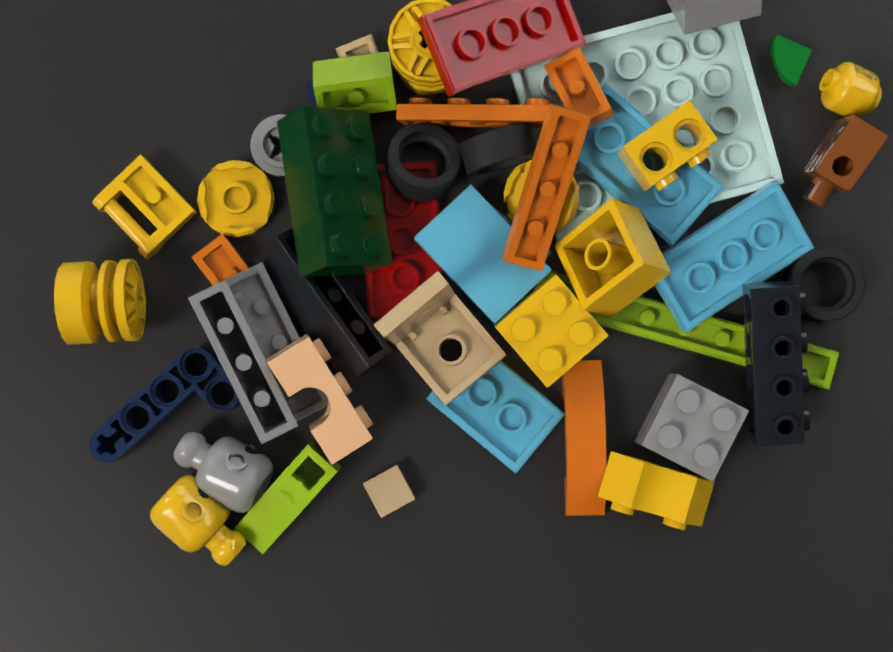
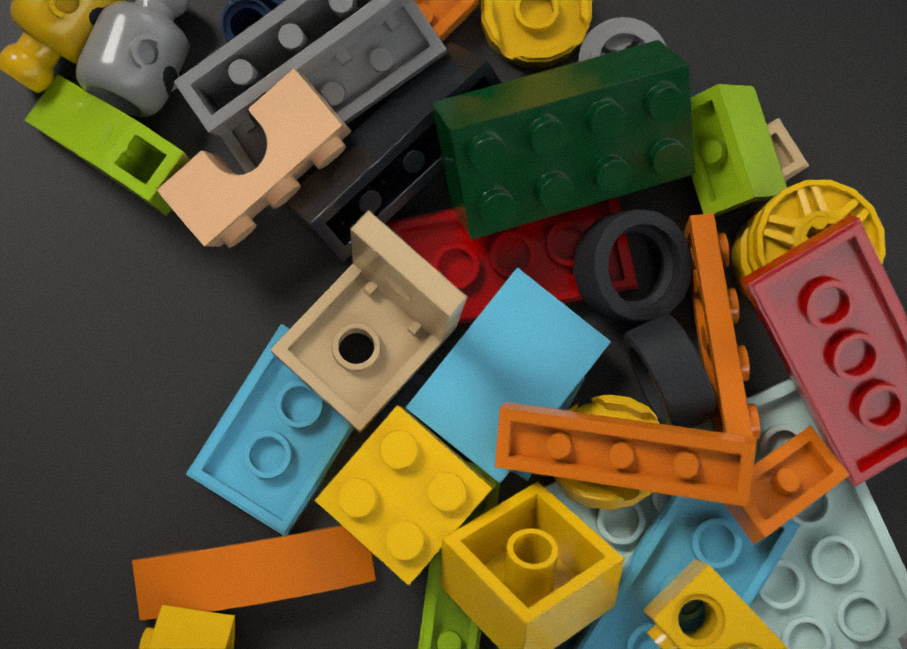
camera: 75 degrees right, 5 degrees down
(389, 490) = (138, 289): tan tile -> none

